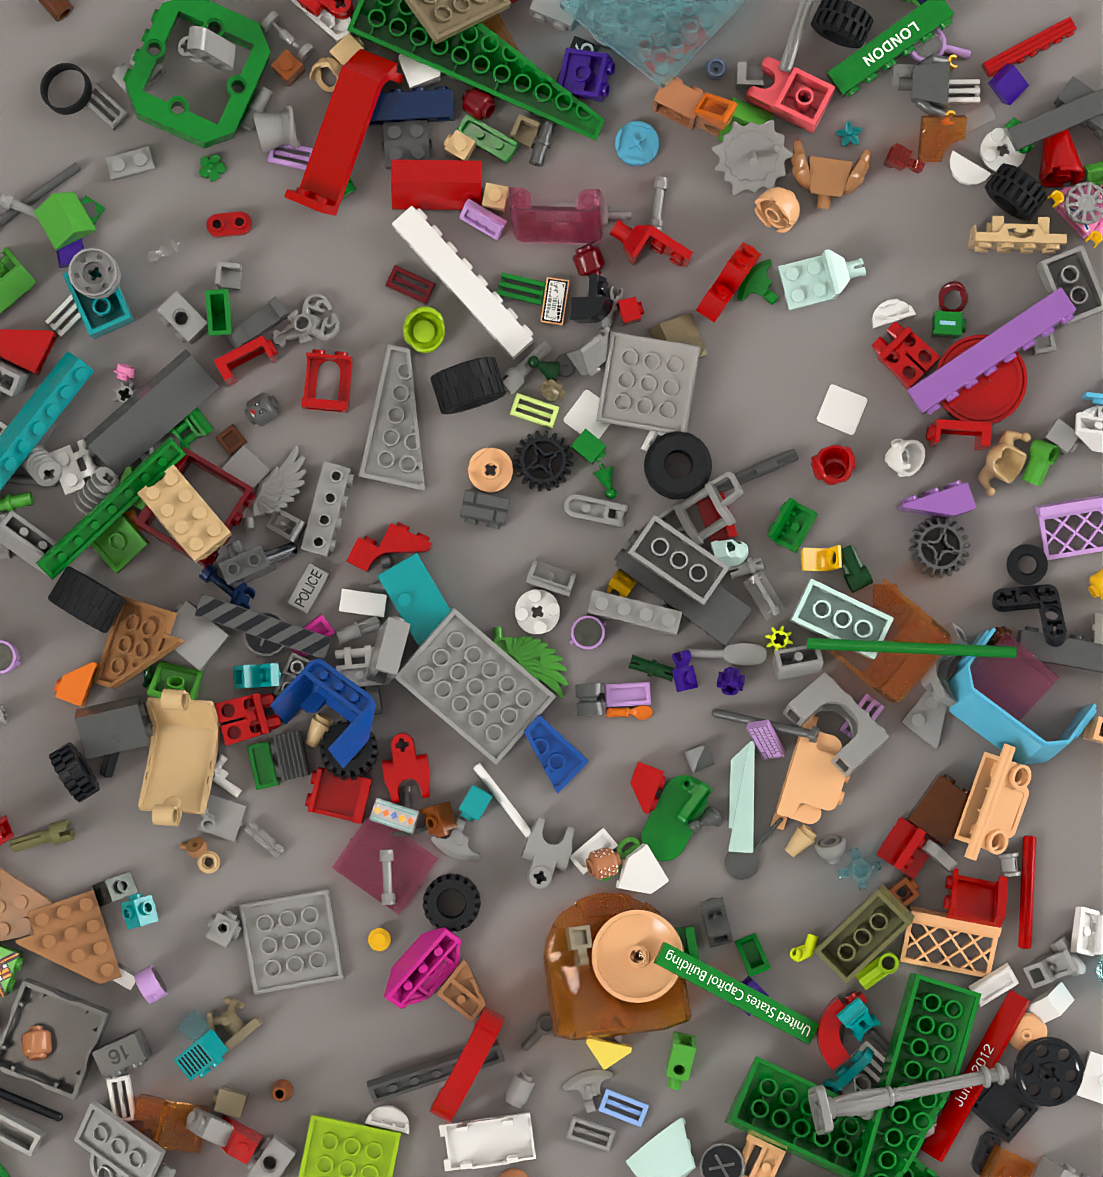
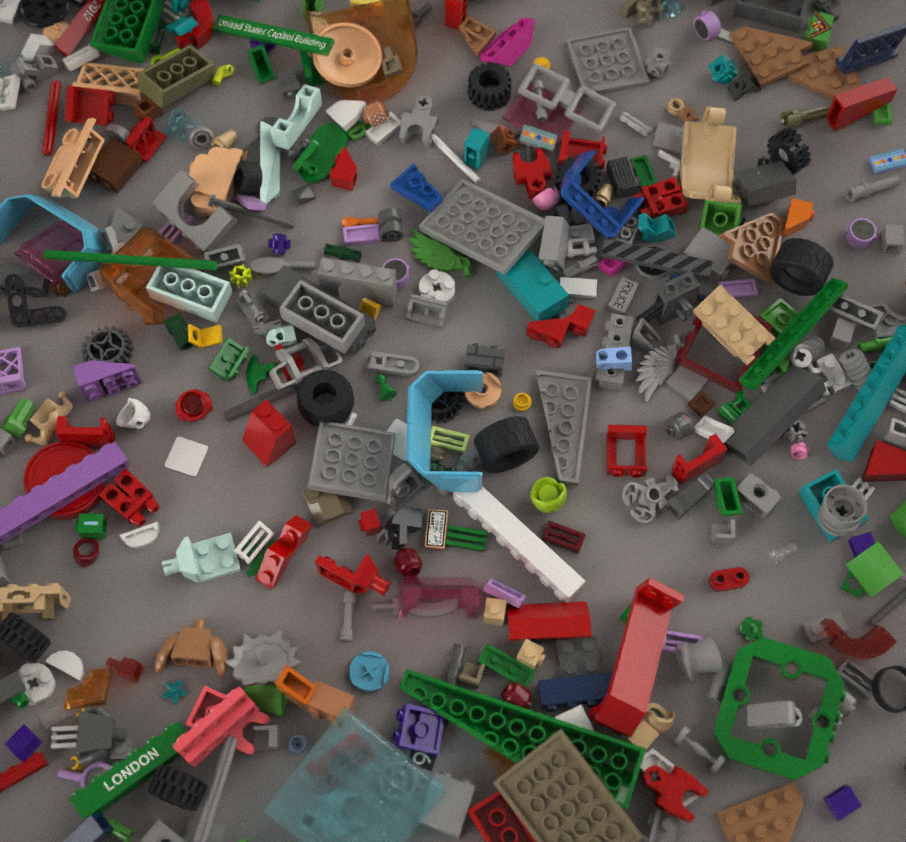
camera: 175 degrees right, 20 degrees down
(49, 518) = (841, 334): none -> light grey brick
(96, 134) = (871, 645): none -> clear red arch
(166, 590) = (741, 288): none -> lavender tile
(223, 399) = (707, 427): none -> white tile
(288, 67) = (695, 719): dark orange brick -> none
(331, 486) = (614, 358): none -> light blue leg
(351, 878) = (567, 98): none -> light grey bar
(389, 723) = (547, 199): none -> bright pink hair
(444, 453) = (522, 401): none -> yellow plate
(568, 396) = (418, 446): none -> medium azure piece
(589, 447) = (397, 410): green brick -> none
(684, 674) = (316, 246): dark purple plate -> none
(698, 874) = (307, 103): none -> light aqua arch
(744, 421) = (268, 433): none -> red slope
(757, 510) = (257, 373): none -> green piece
(769, 775) = (248, 177): none -> black tyre
(778, 208) = (238, 617): light nougat cylinder -> none
(779, 283) = (242, 555): none -> white tile
(802, 77) = (215, 727): none -> coral brick
(895, 996) = (155, 47): none -> dark green piece
(1009, 864) = (62, 128): light grey bush -> none
(1027, 550) = (35, 352): black tyre -> none

